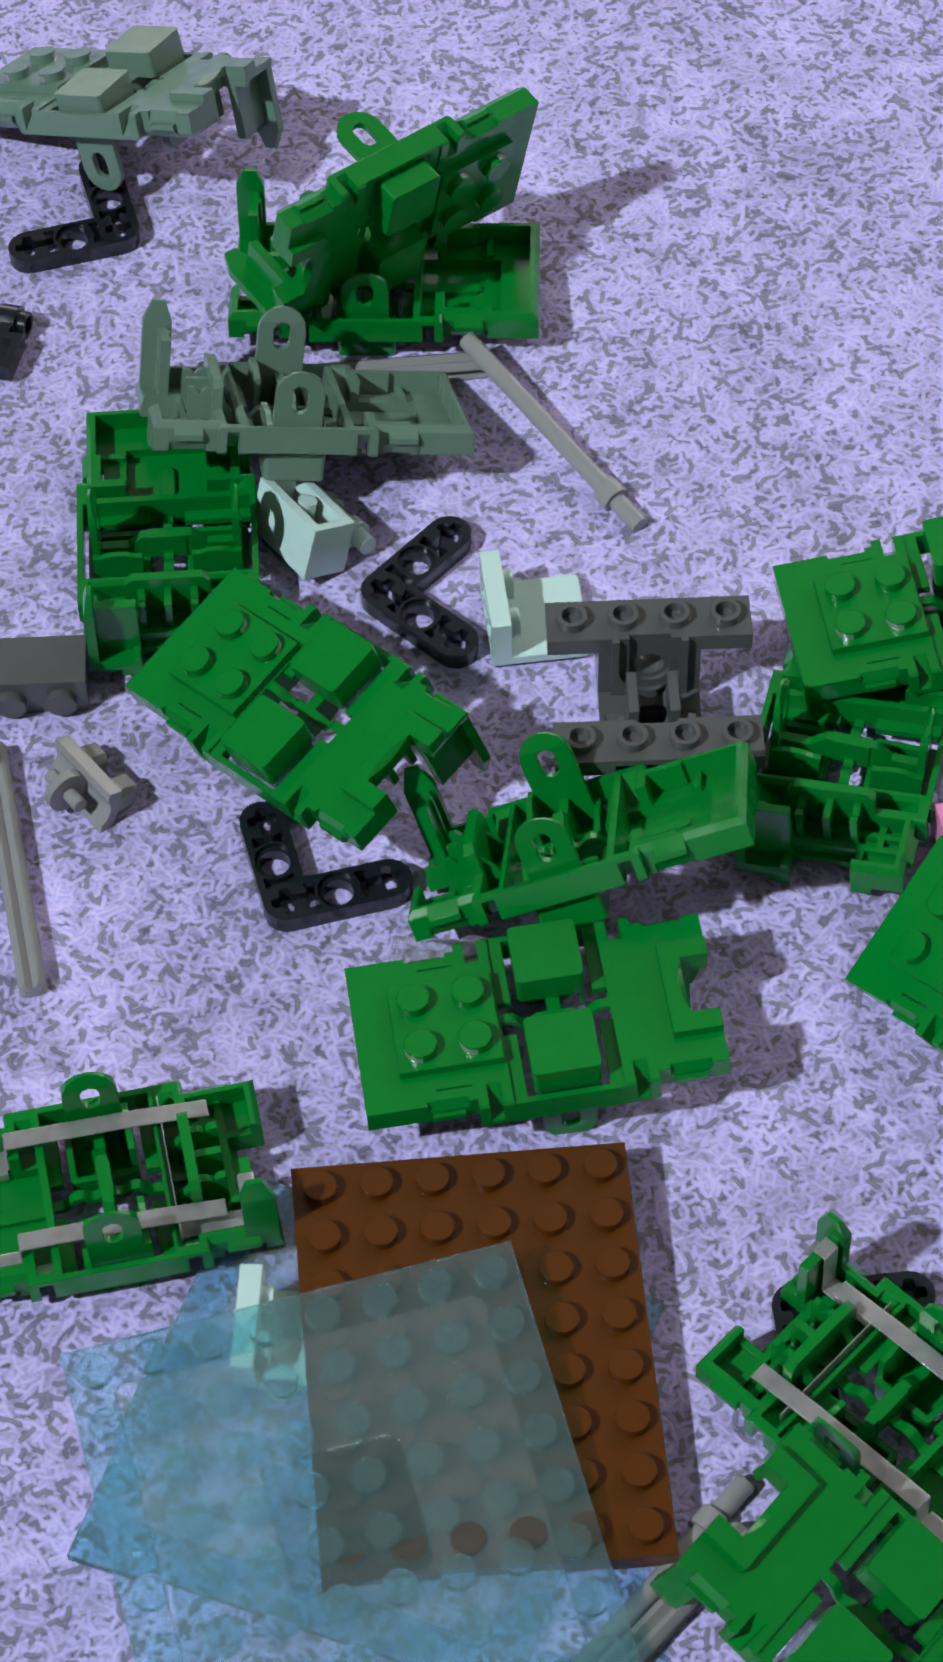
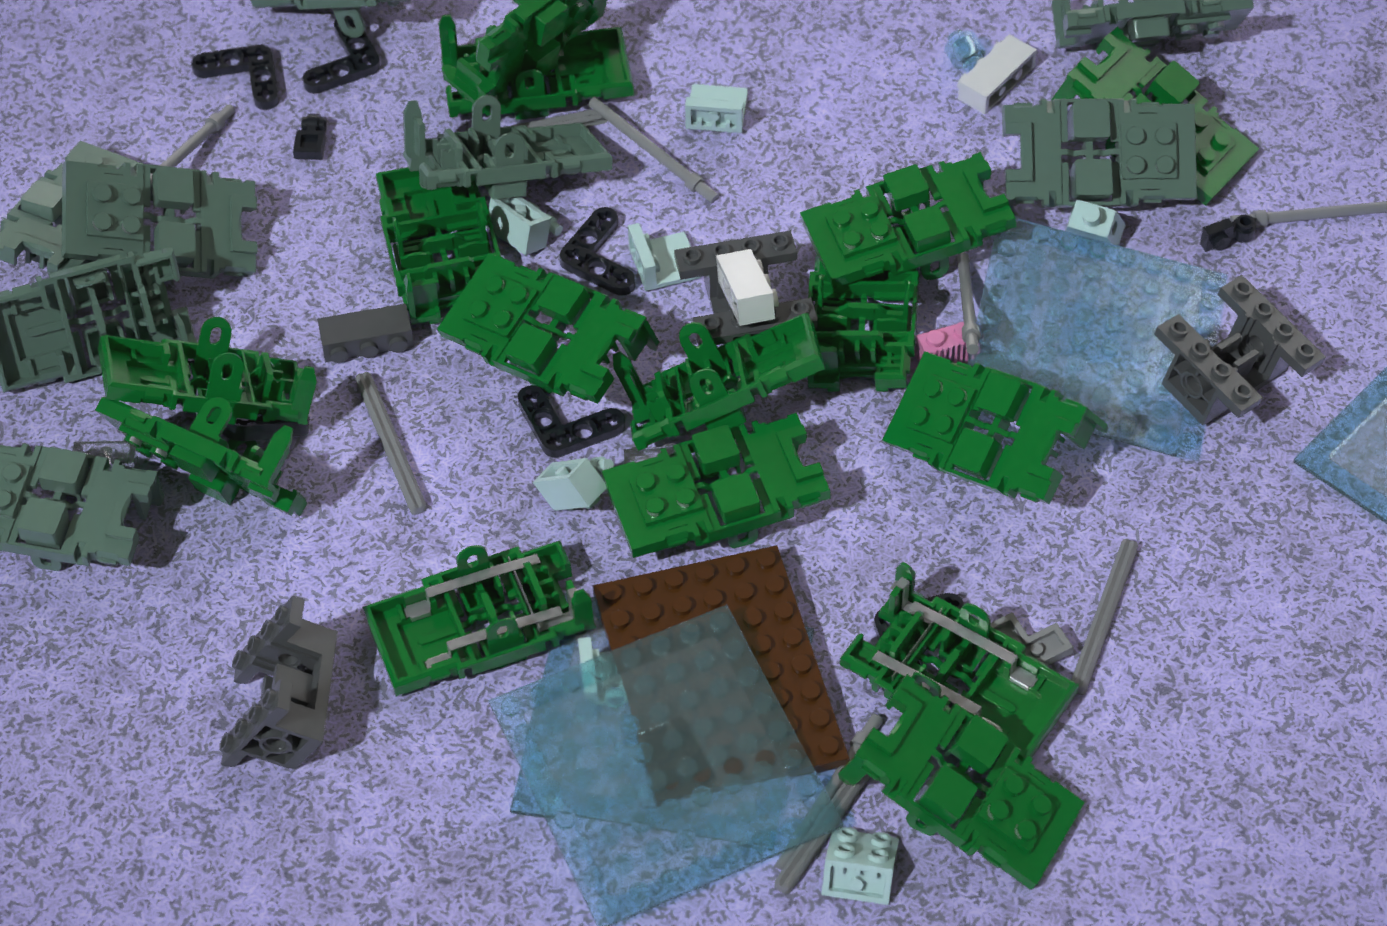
camera: 10 degrees left, 0 degrees up
(81, 782) = (420, 388): light grey hips -> none
(297, 981) = (573, 483): none -> light aqua brick
(653, 683) = (746, 287): none -> white brick
(670, 375) = (715, 108): none -> light aqua bracket

